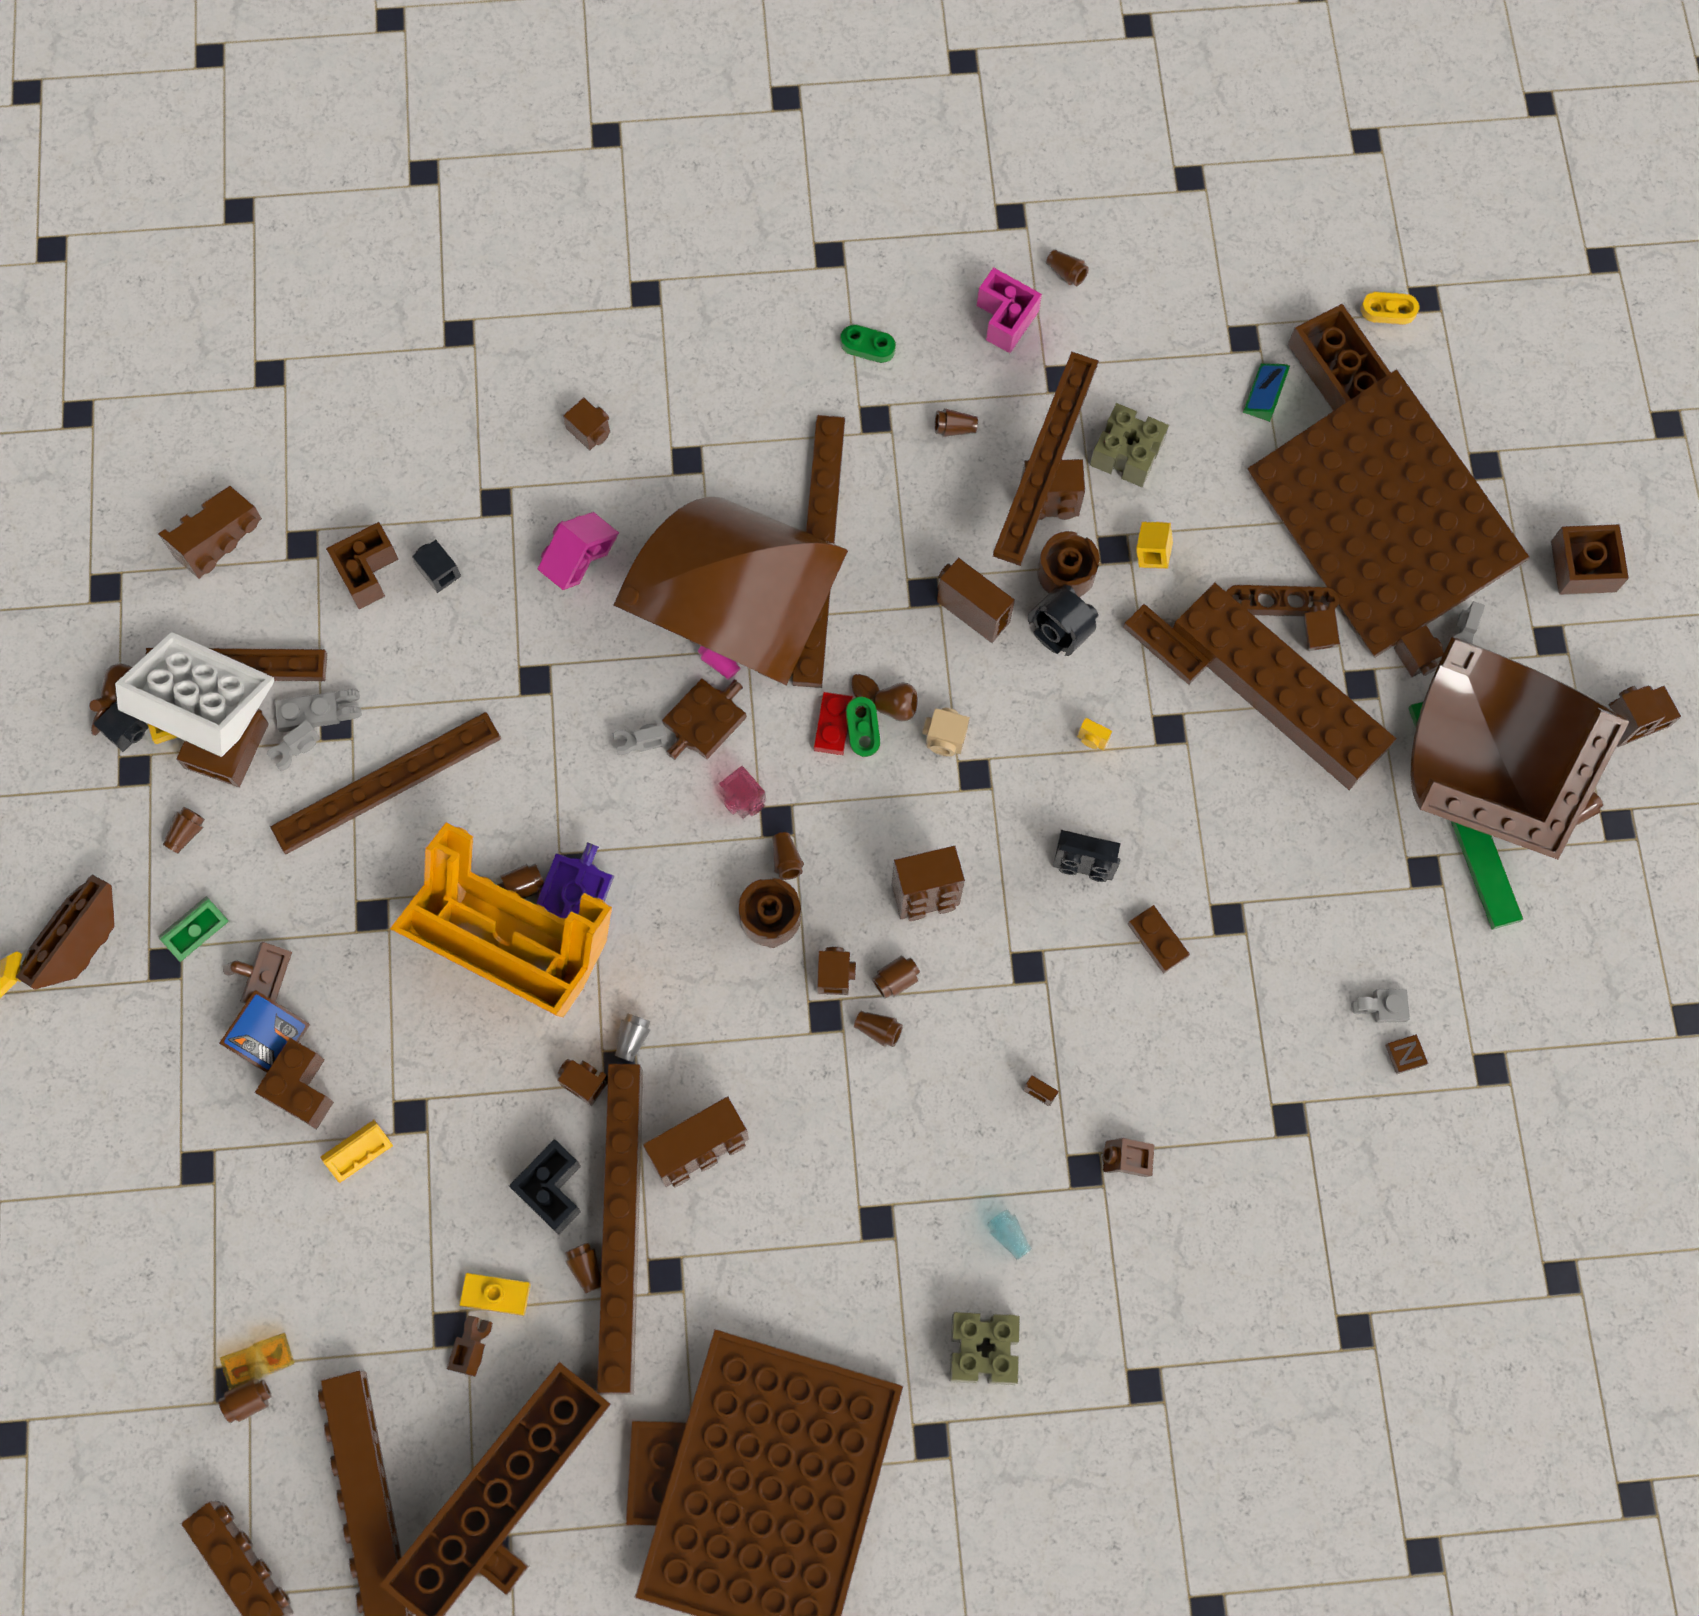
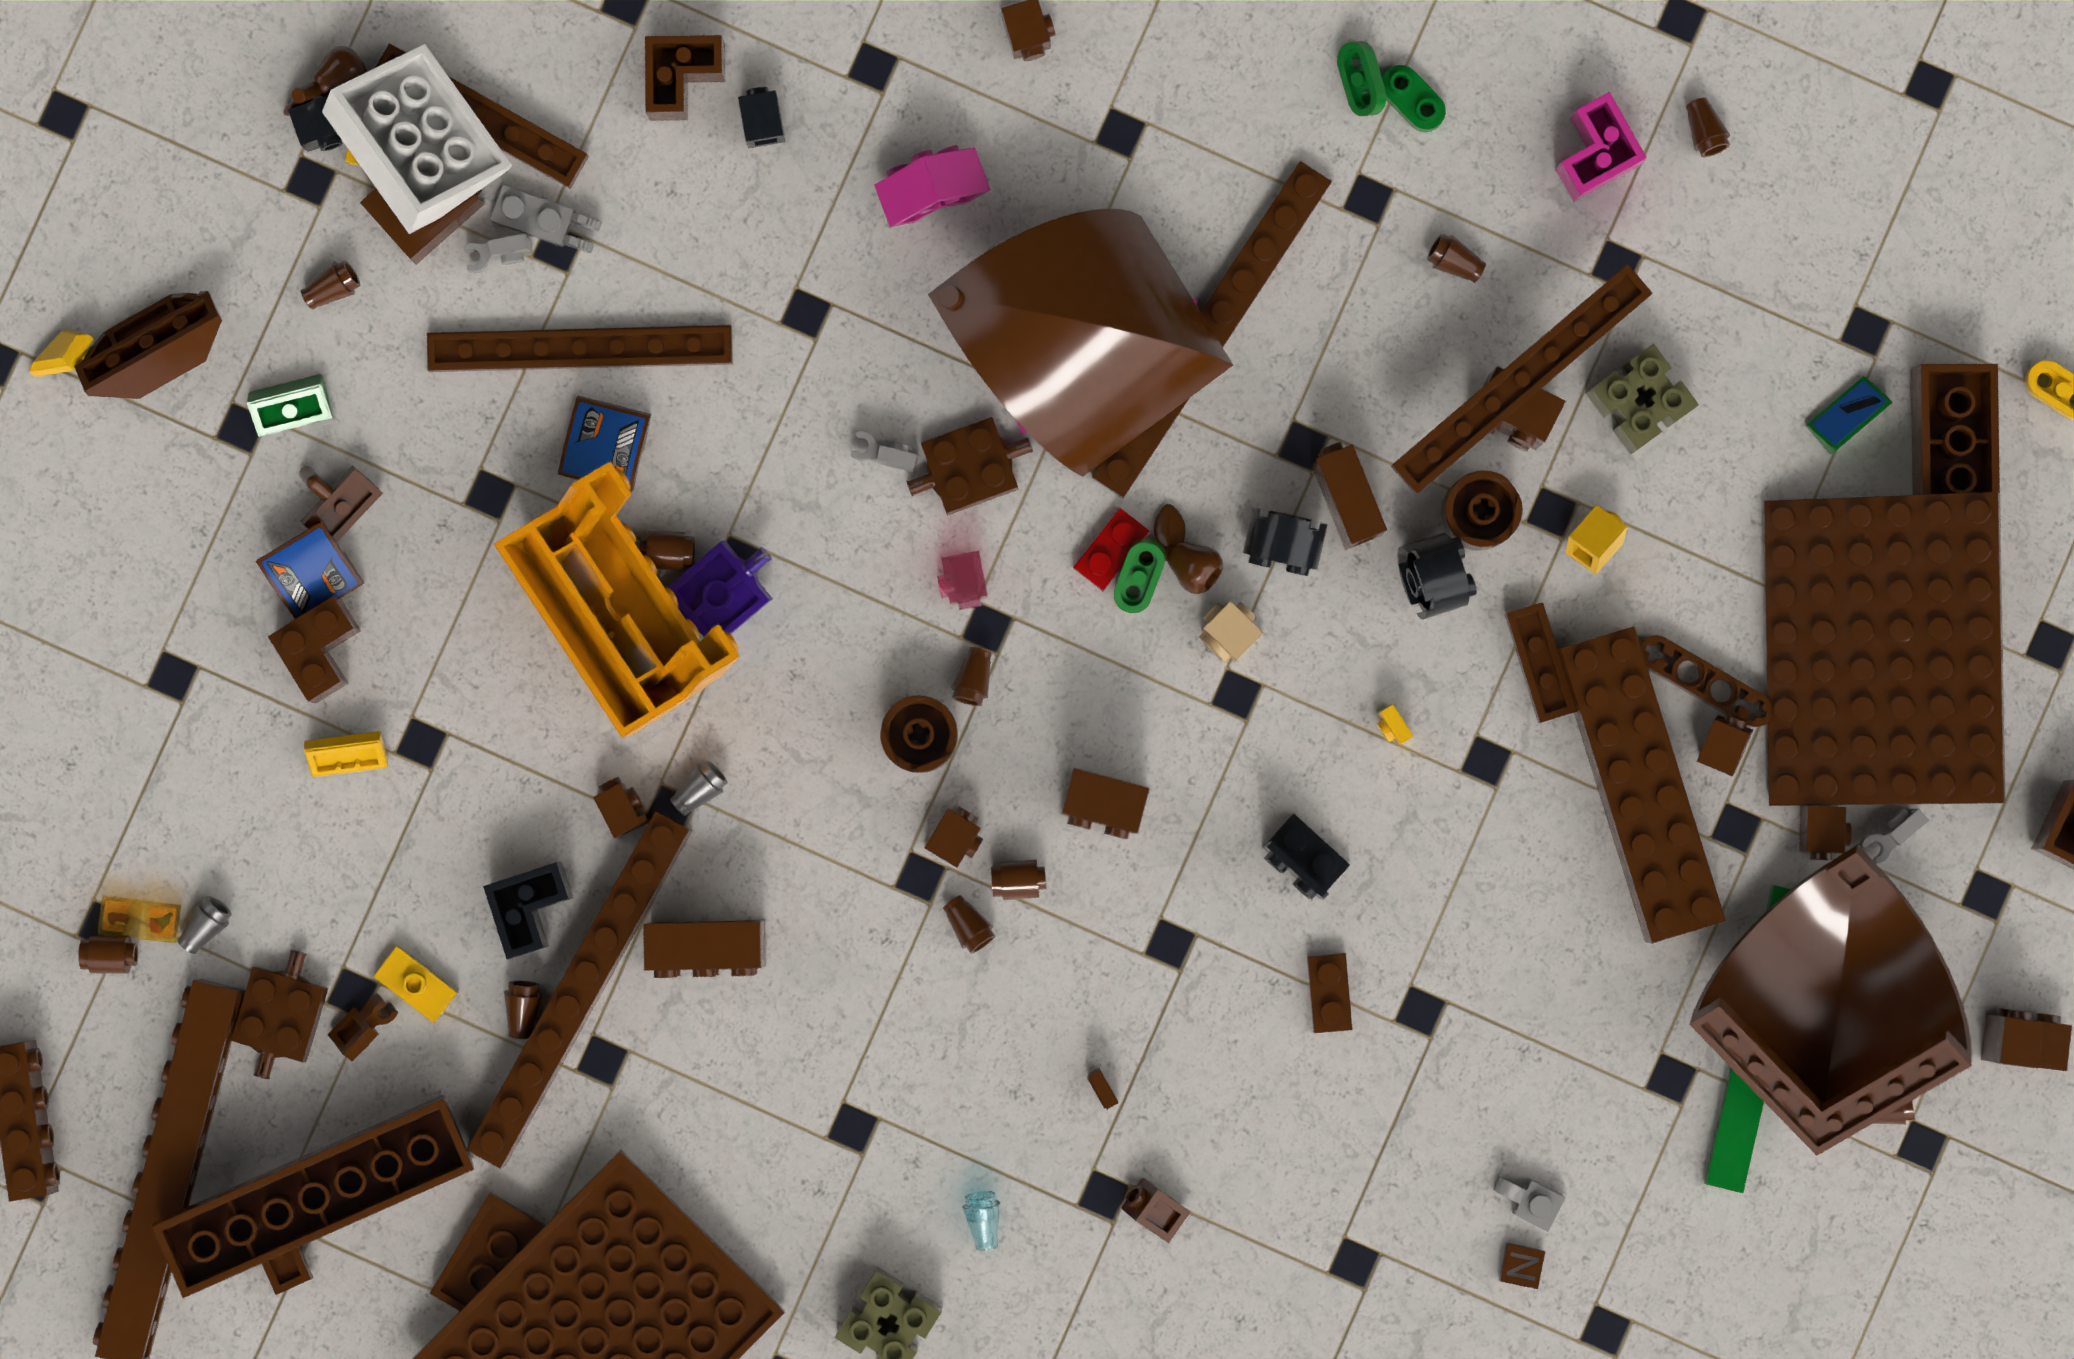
camera: 30 degrees right, 15 degrees up
(309, 1337) = (205, 923): none -> flat silver cone
(401, 1374) = (279, 1014): none -> reddish brown plate
(423, 825) = (603, 434): none -> slope
(829, 347) = (1361, 81): none -> green plate
(948, 650) = (1284, 540): none -> black brick

